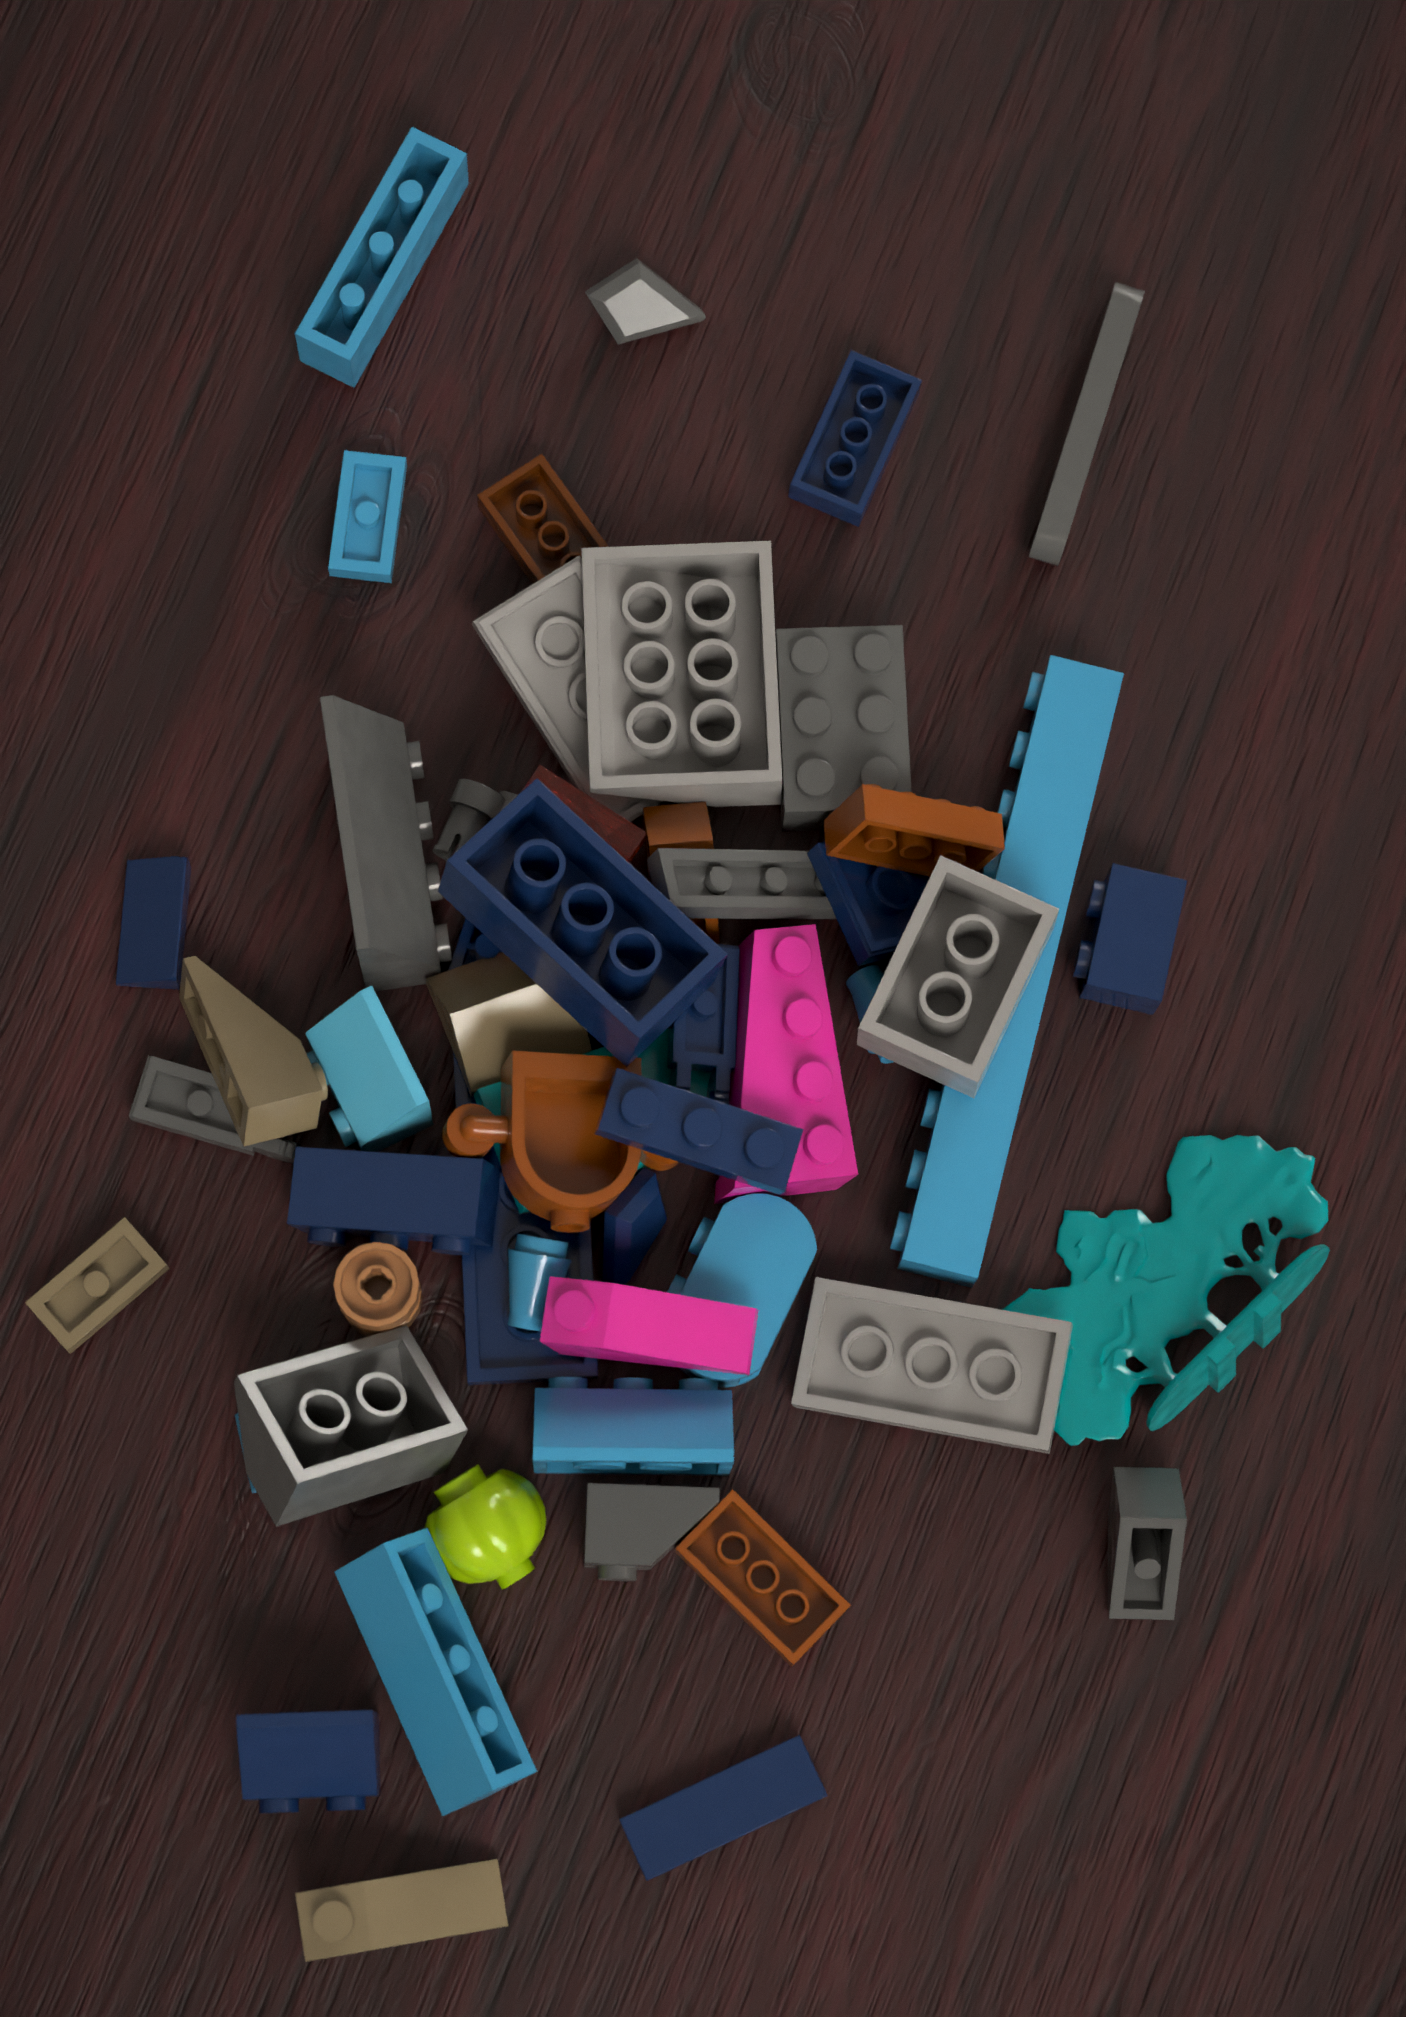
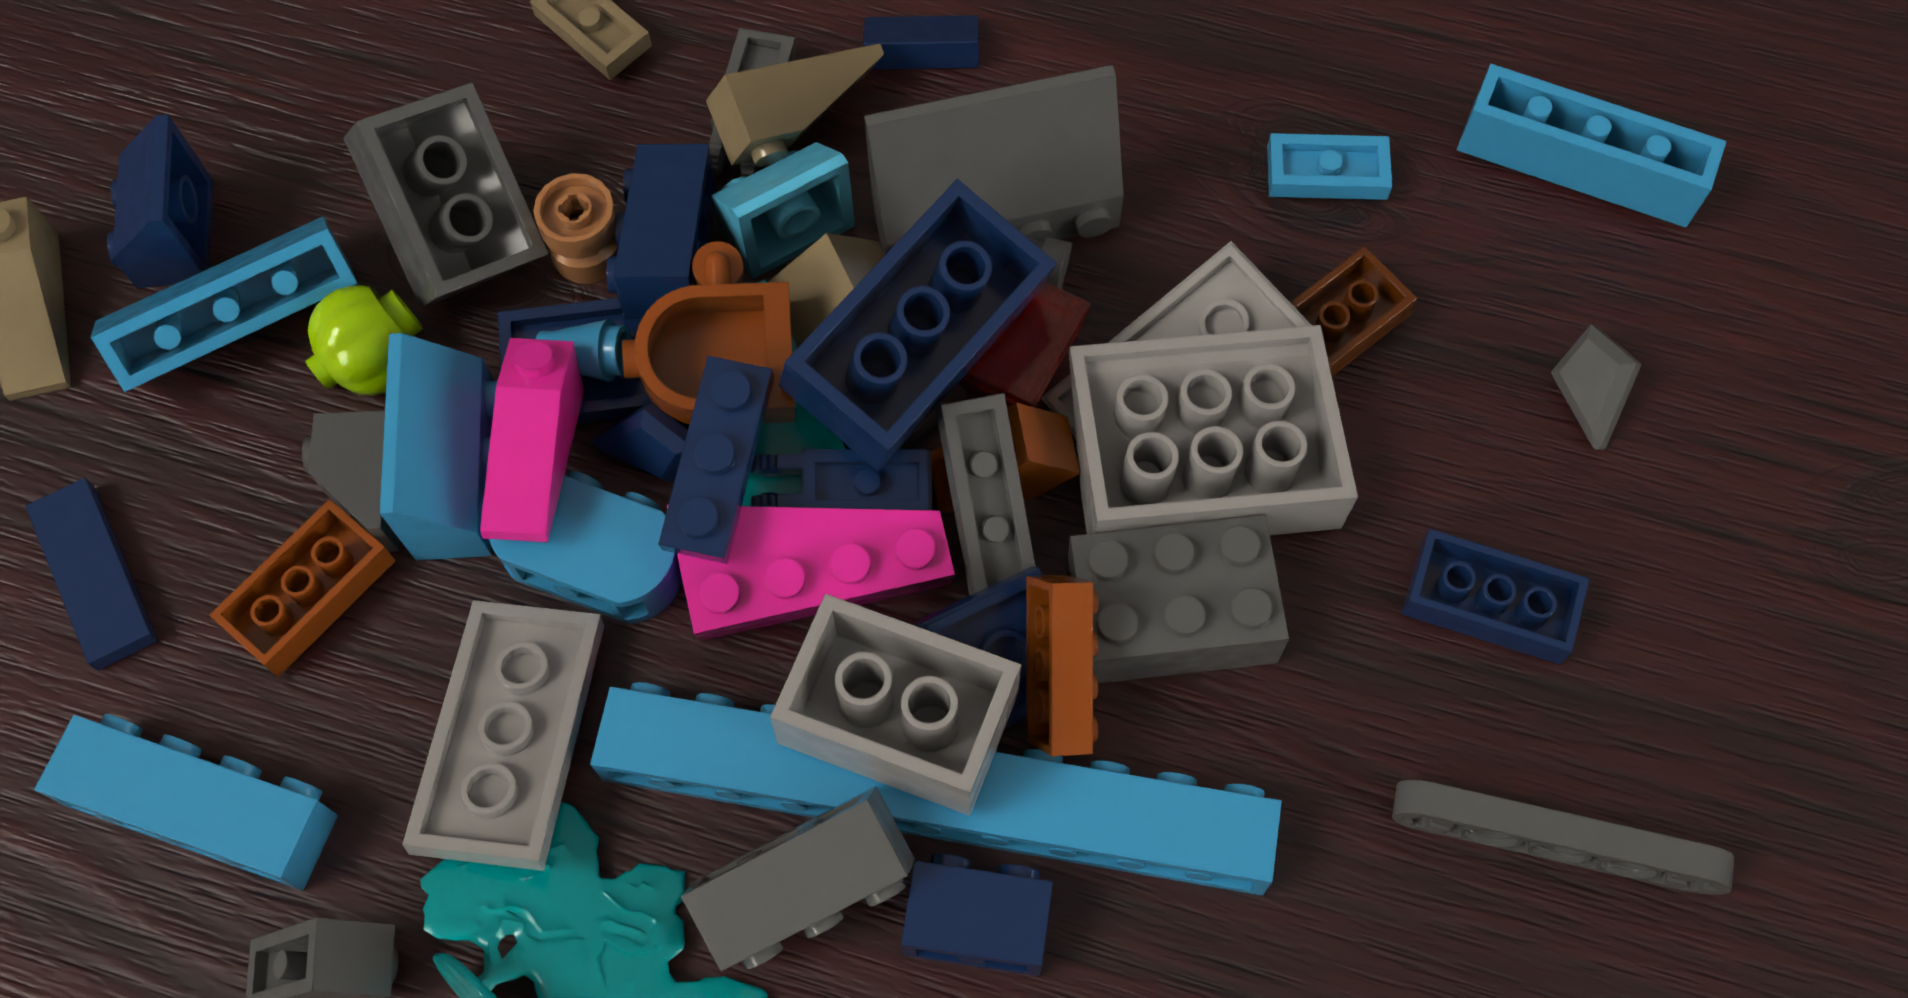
camera: 95 degrees right, 10 degrees down
(978, 1678) = (189, 801): none -> dark azure brick
(1098, 1087) = (800, 881): none -> dark grey brick

